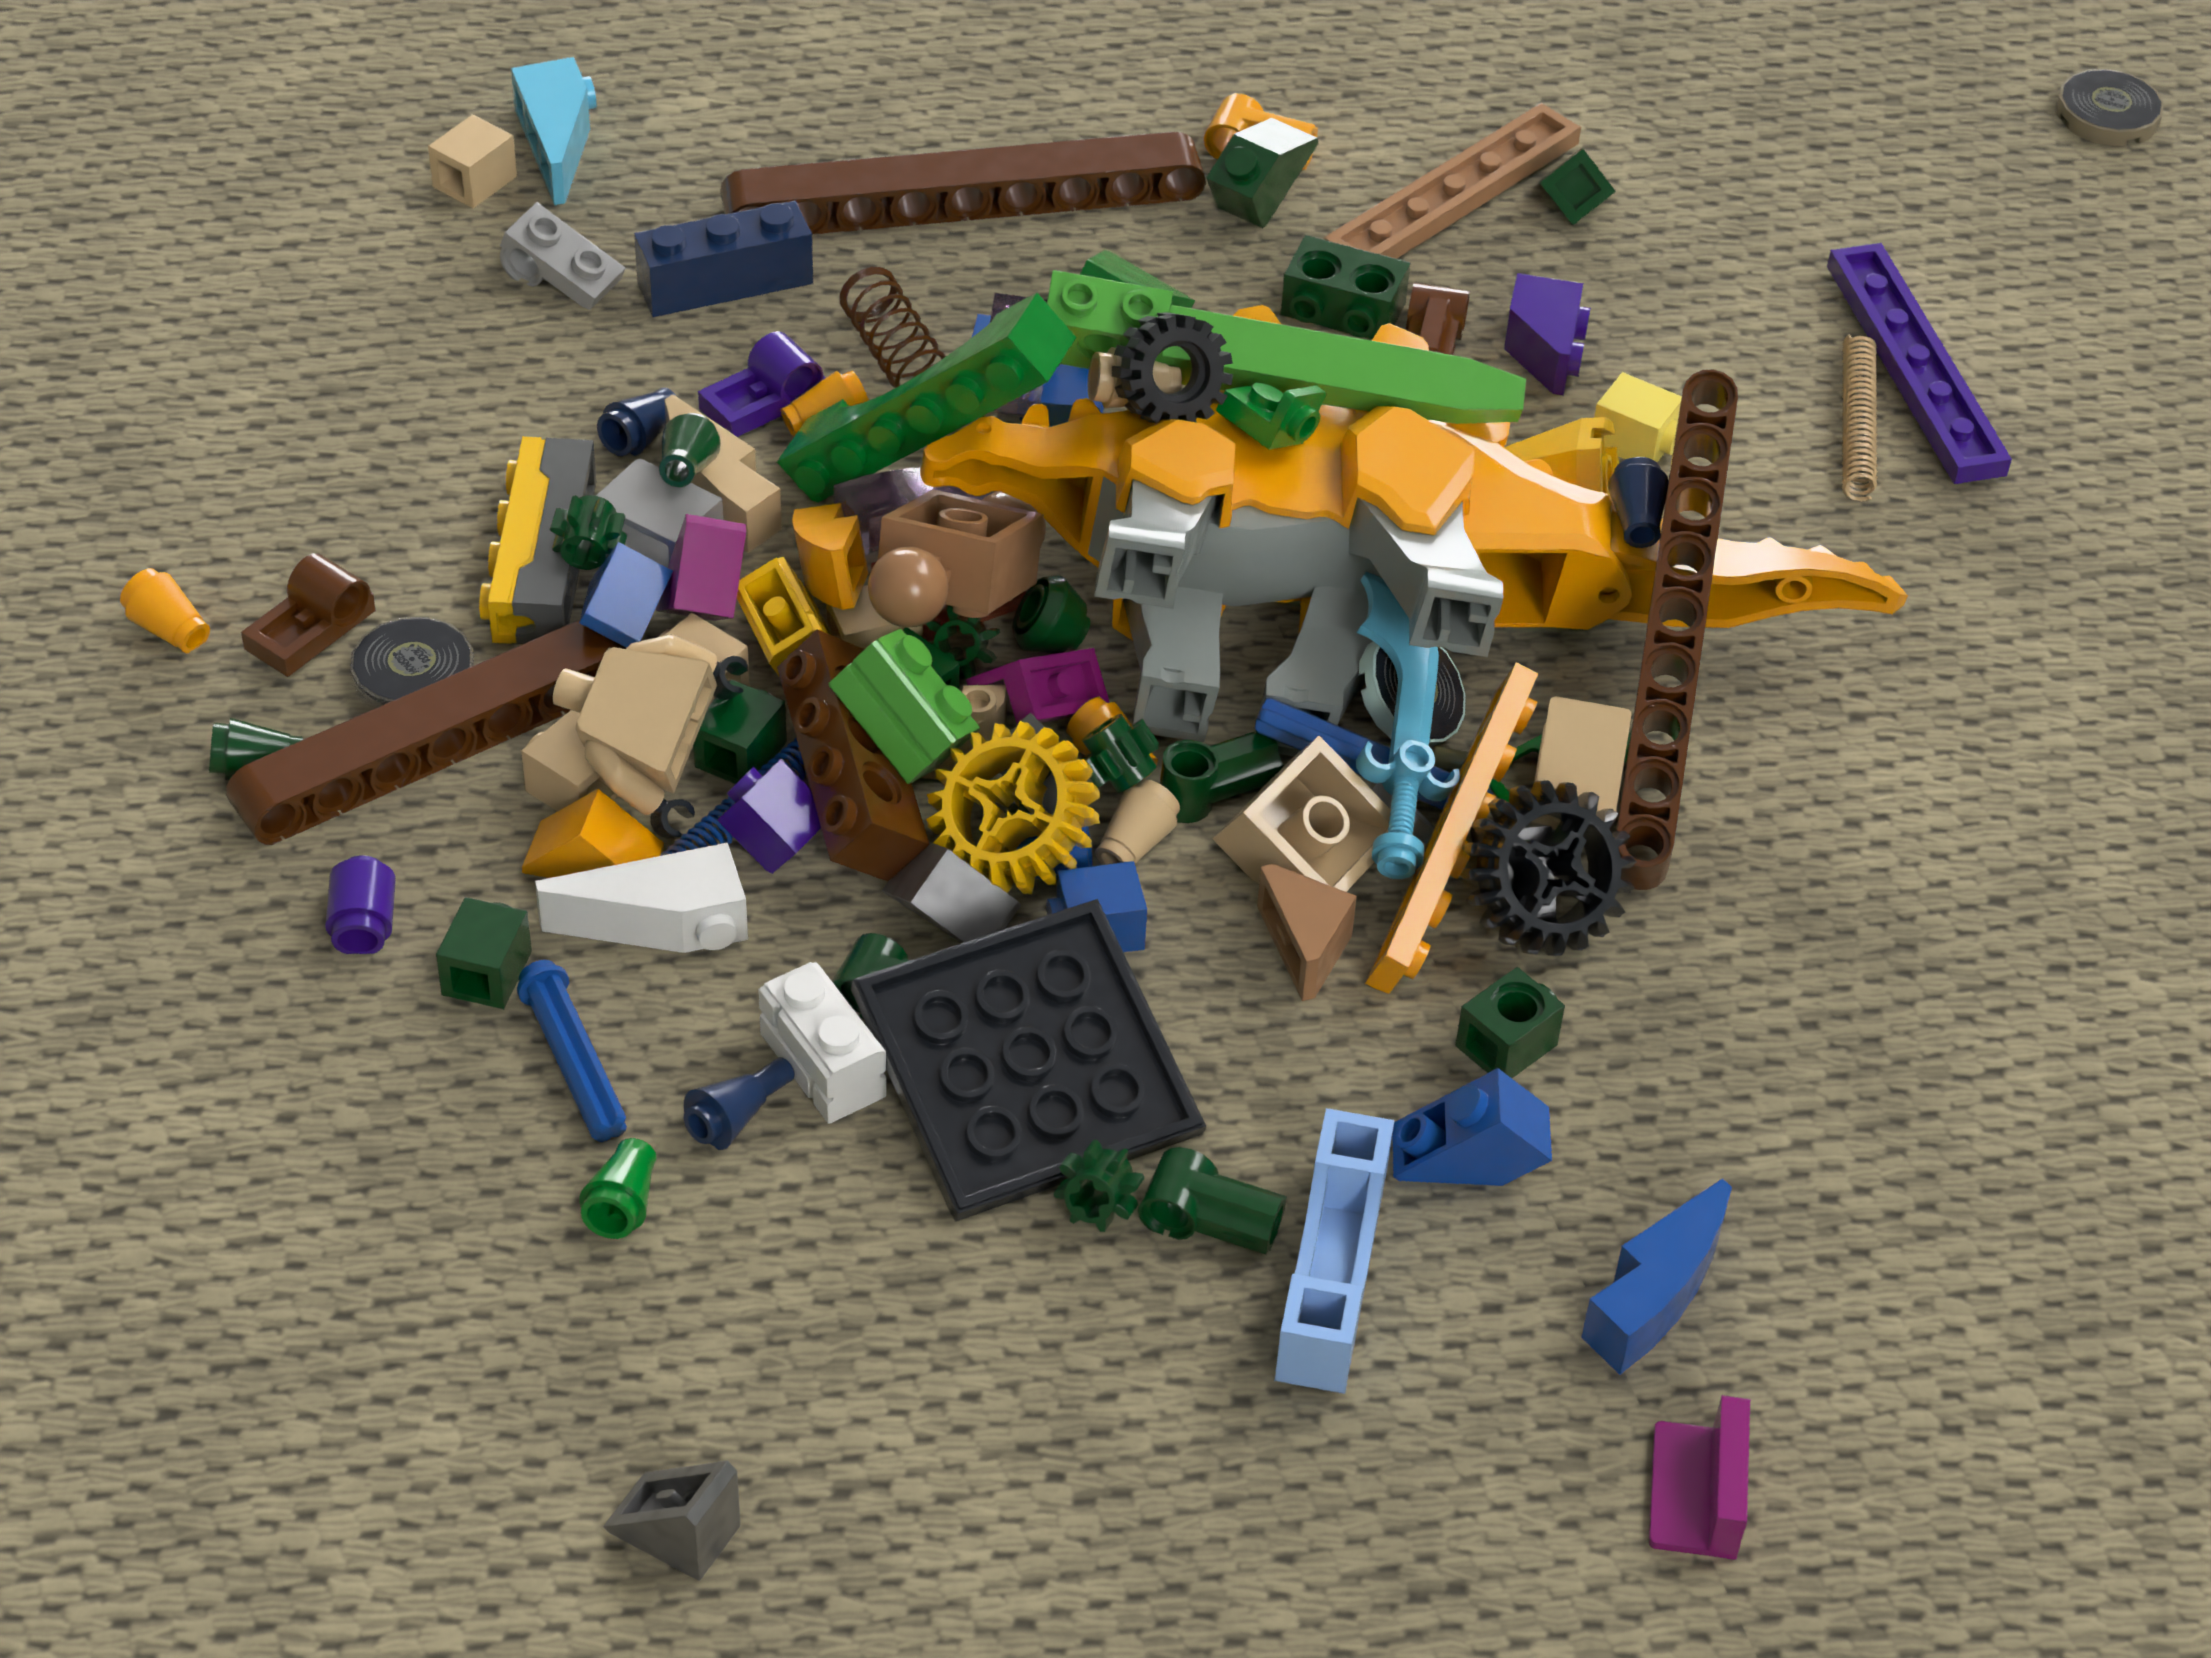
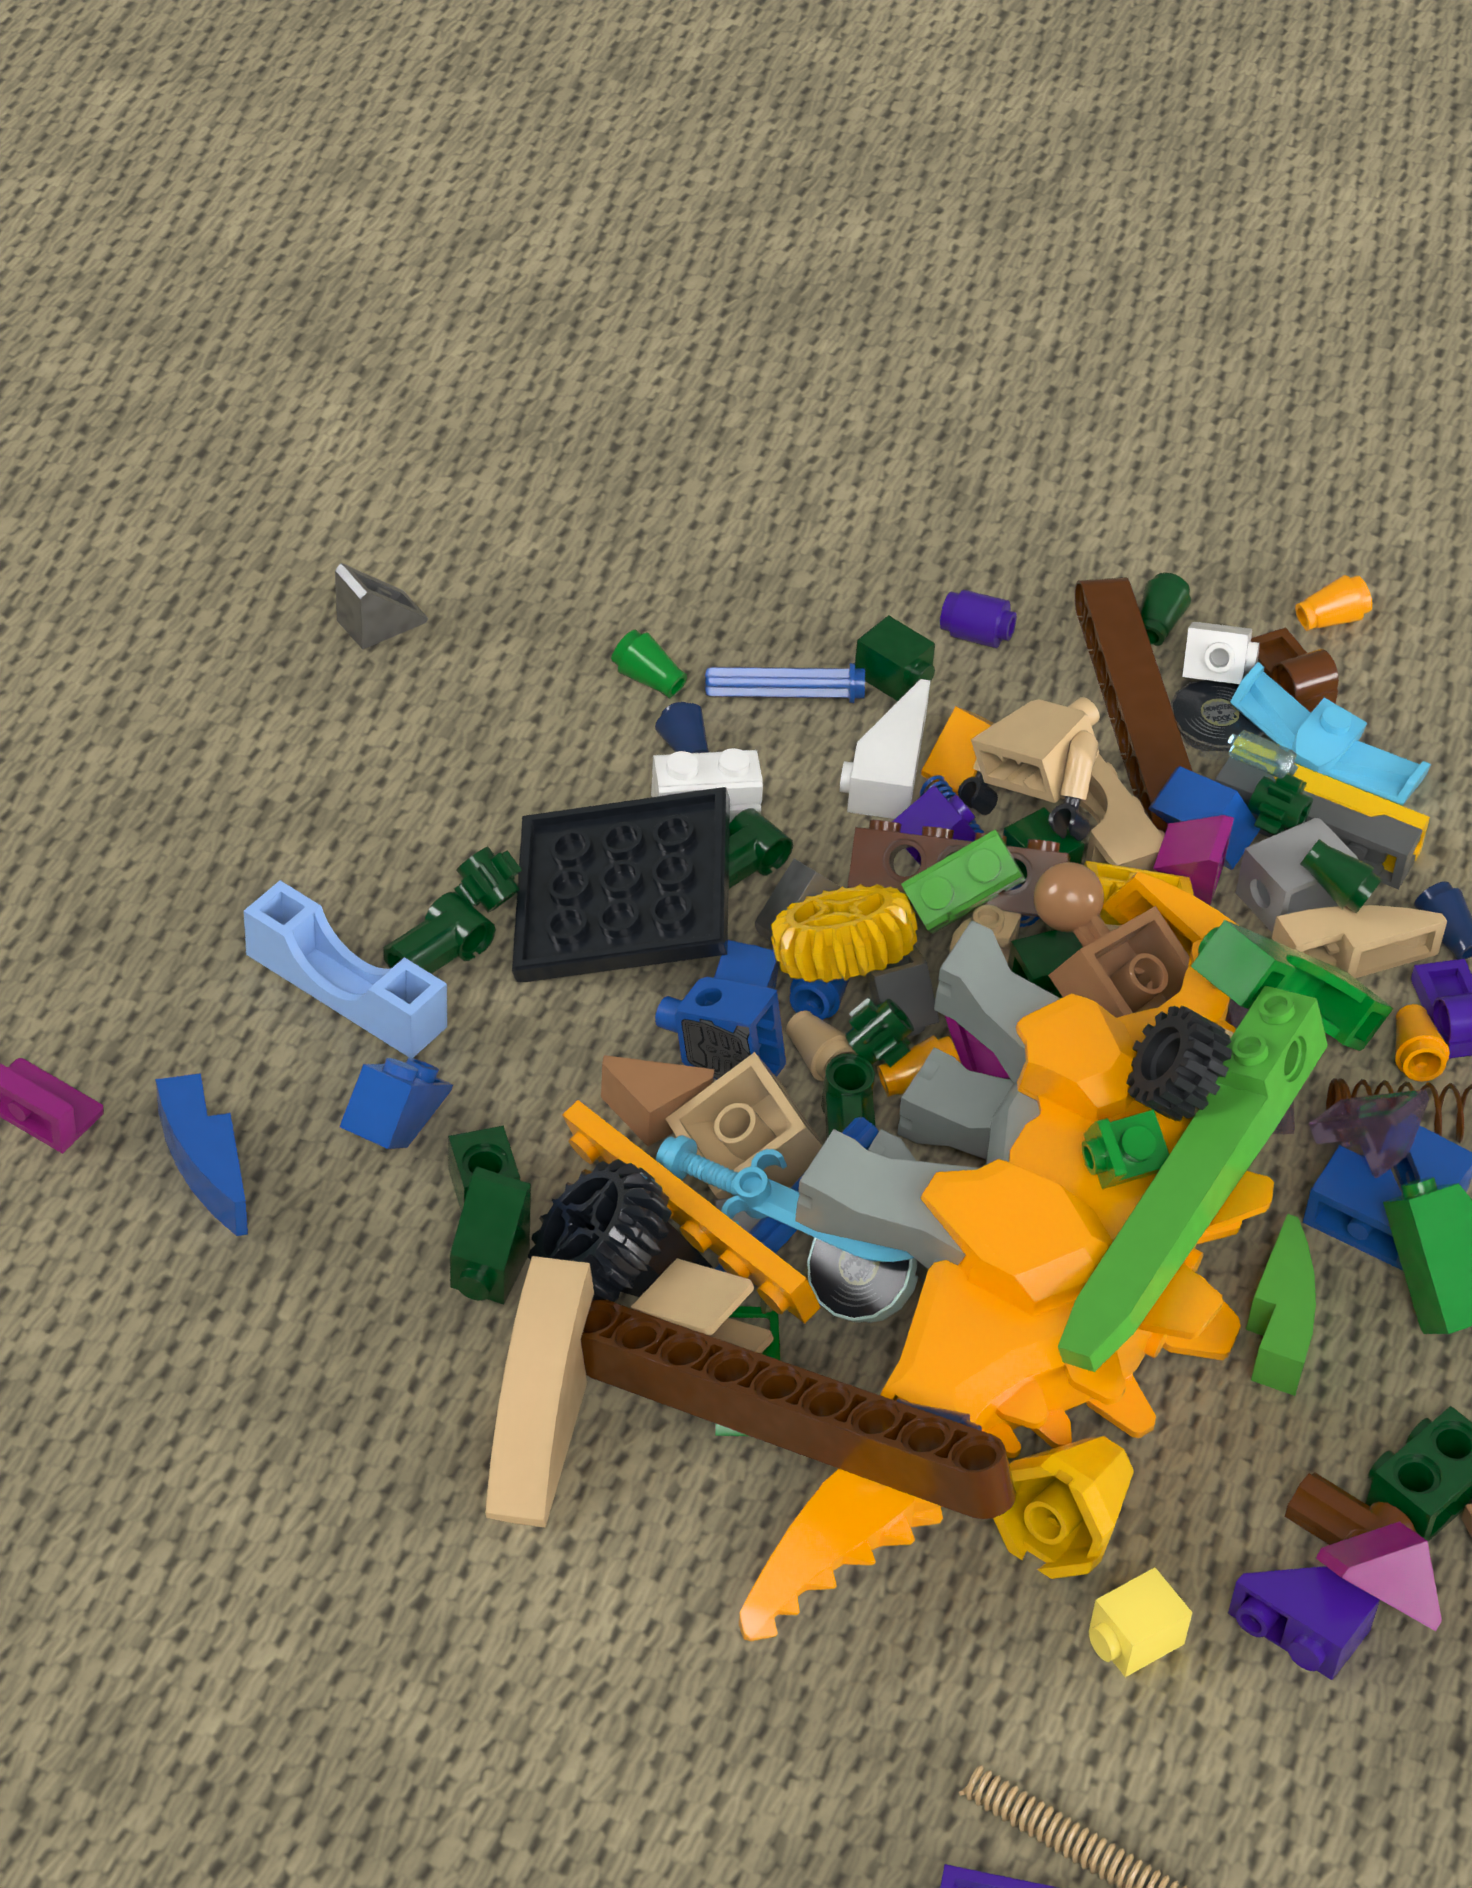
camera: 115 degrees right, 0 degrees up
(328, 667) = (1219, 652): none -> white brick
(412, 564) = (1326, 739): none -> medium azure plate
(539, 543) = (1262, 754): none -> clear light blue axle
(1193, 895) = (725, 1024): none -> blue torso
(1491, 269) = (1391, 1566): none -> magenta slope
(1604, 968) = (491, 1237): none -> dark green slope
(1745, 856) = (539, 1391): none -> tan slope

